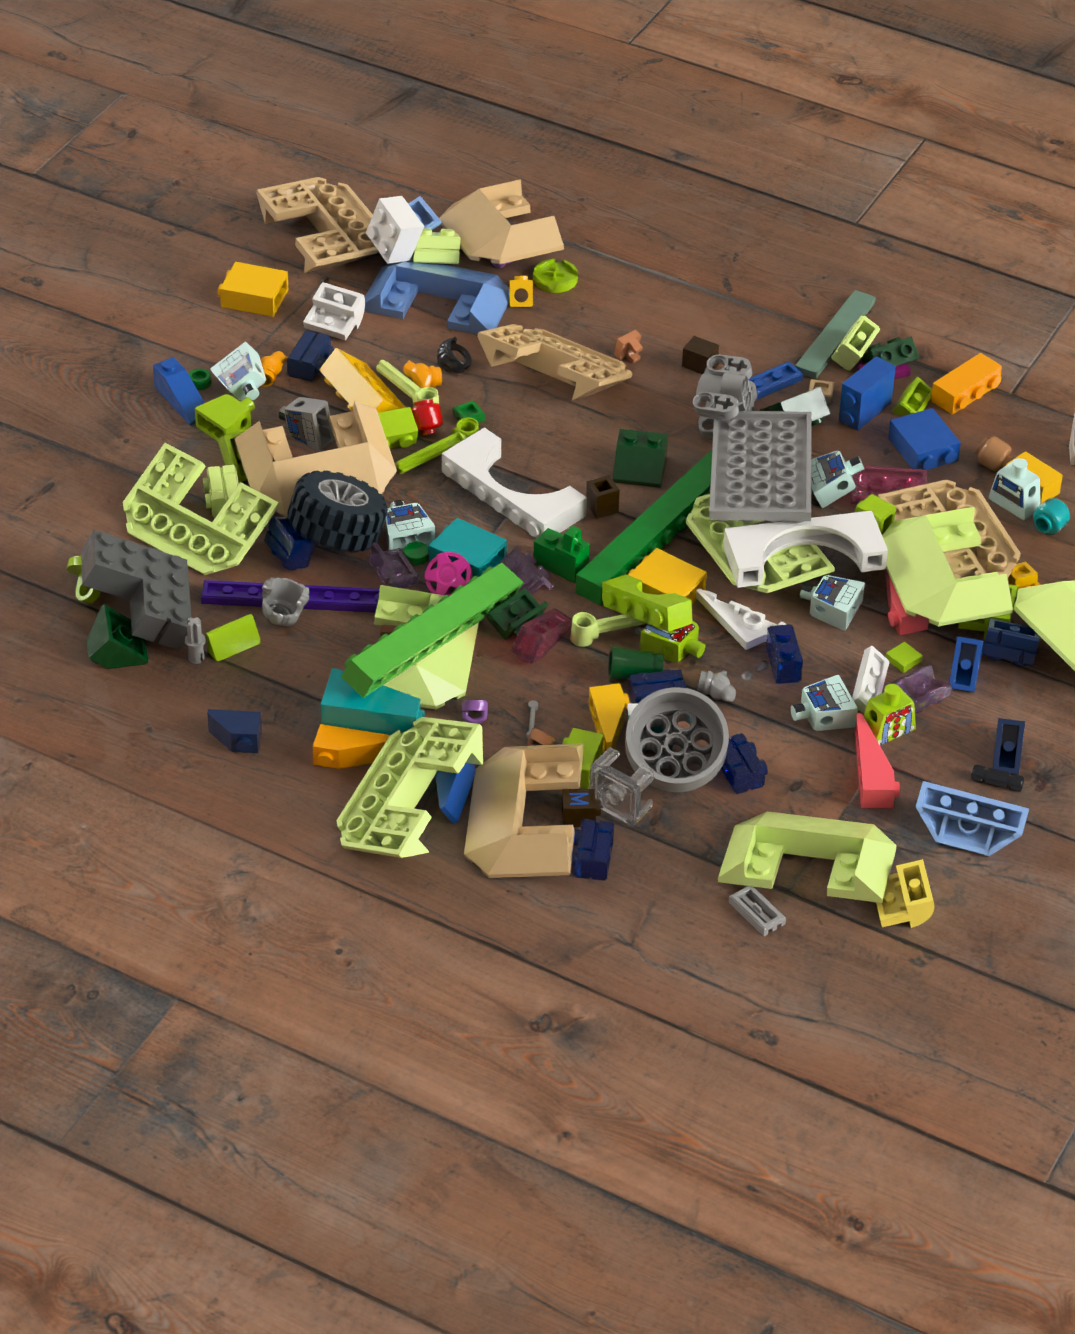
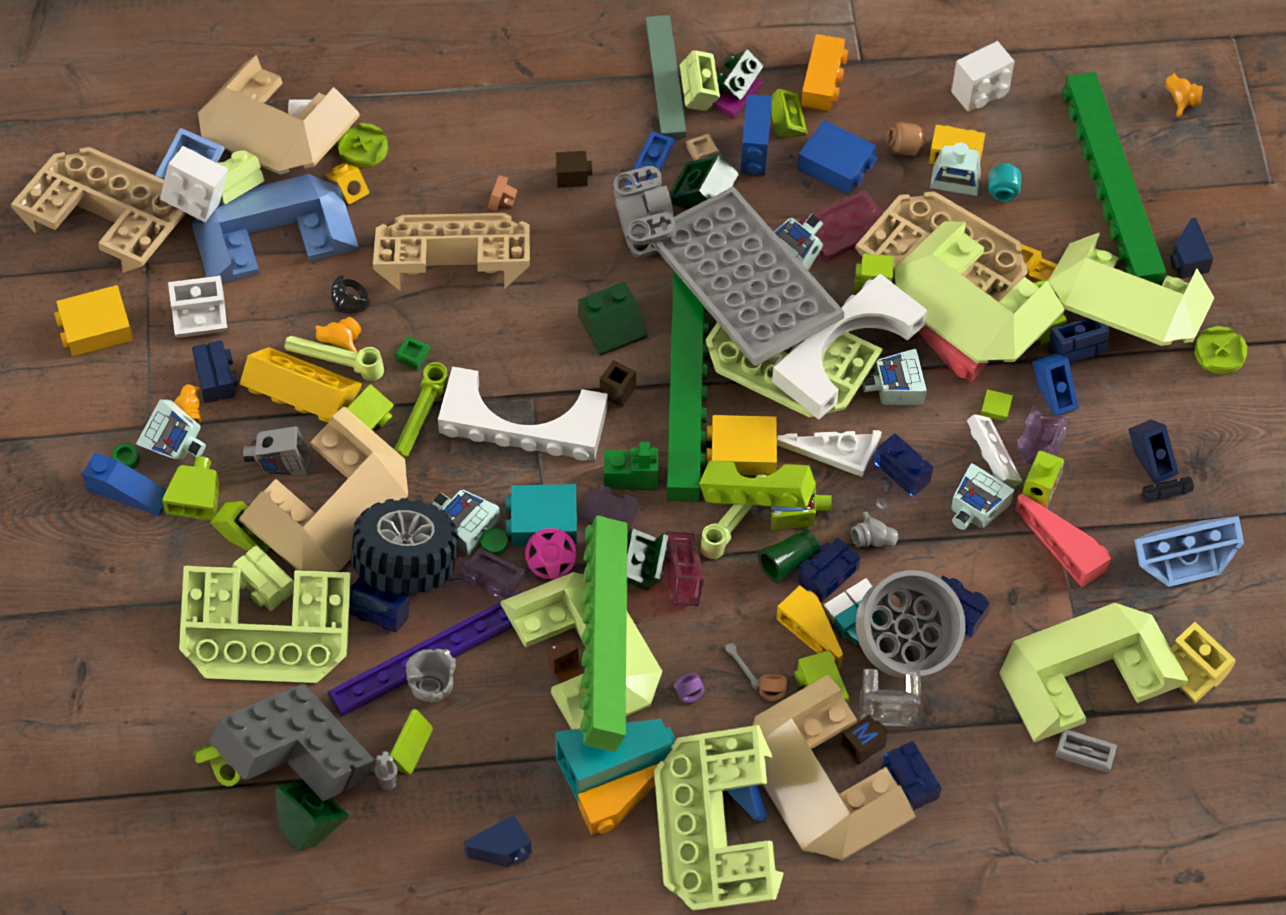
camera: 35 degrees left, 15 degrees up
(427, 416) = (386, 381): red head -> none

